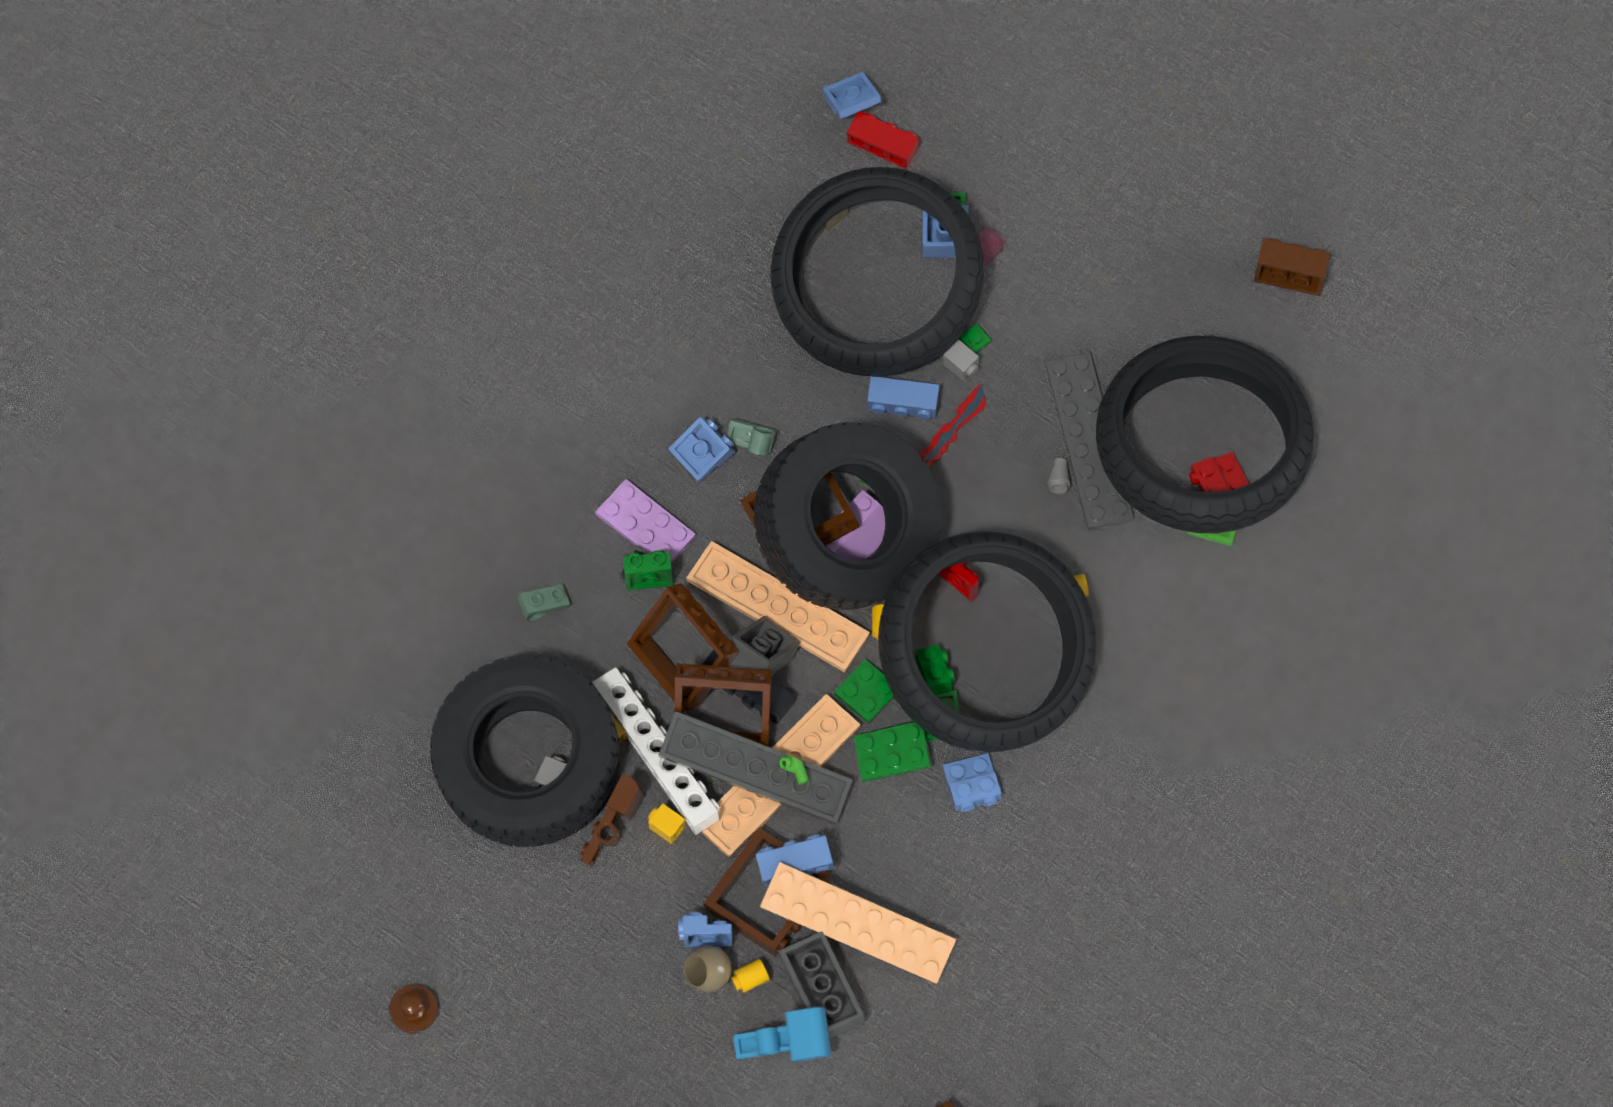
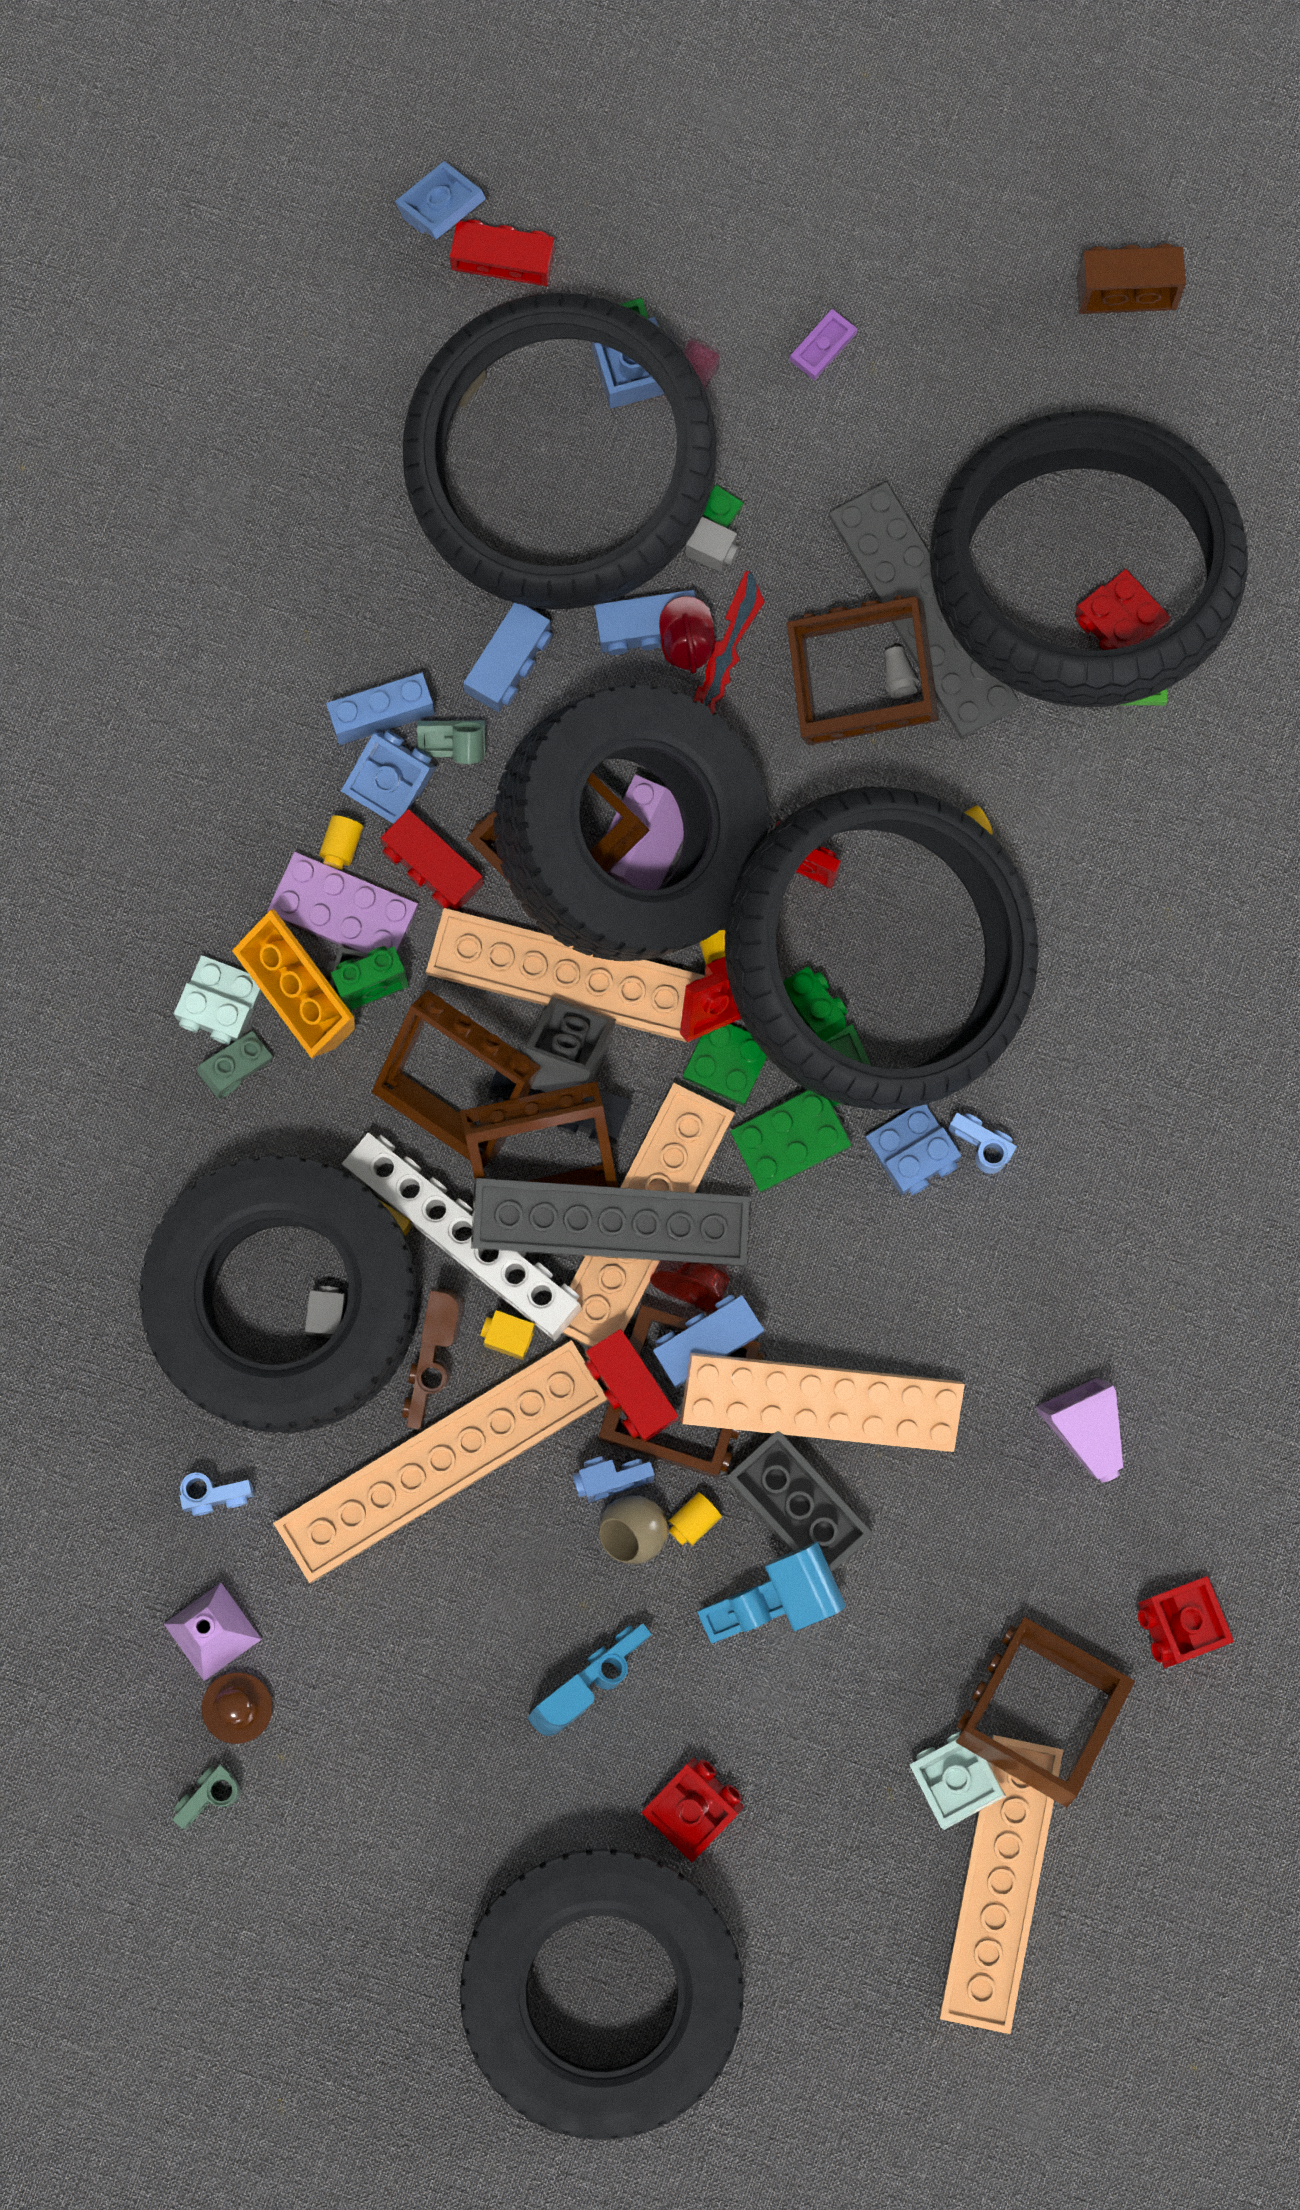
camera: 20 degrees left, 10 degrees up
(365, 1061) = (191, 1807): none -> sand green plate
(413, 956) = (228, 1633): none -> lavender slope
(453, 871) = (231, 1494): none -> light blue plate
(546, 559) = (218, 1001): none -> light aqua plate
(596, 891) = (440, 1462): none -> light nougat plate
(598, 561) = (294, 986): none -> light orange slope
(627, 1065) = (574, 1696): none -> dark azure plate
(657, 480) = (340, 842): none -> yellow brick
(710, 403) = (380, 708): none -> medium blue brick
(712, 509) = (430, 862): none -> red brick
(734, 875) = (630, 1386): none -> red brick
(794, 766) = (667, 1204): bright green arm -> none
(797, 824) = (693, 1283): none -> clear red piece
(804, 394) = (508, 657): none -> medium blue brick
(862, 647) = (708, 1003): none -> red plate
(926, 410) = (687, 633): none -> dark red piece
(1014, 781) = (971, 1130): none -> light blue plate
(1030, 994) = (1088, 1426): none -> lavender slope
(1033, 500) = (873, 721): none -> reddish brown window
(1075, 254) = (823, 344): none -> medium lavender plate

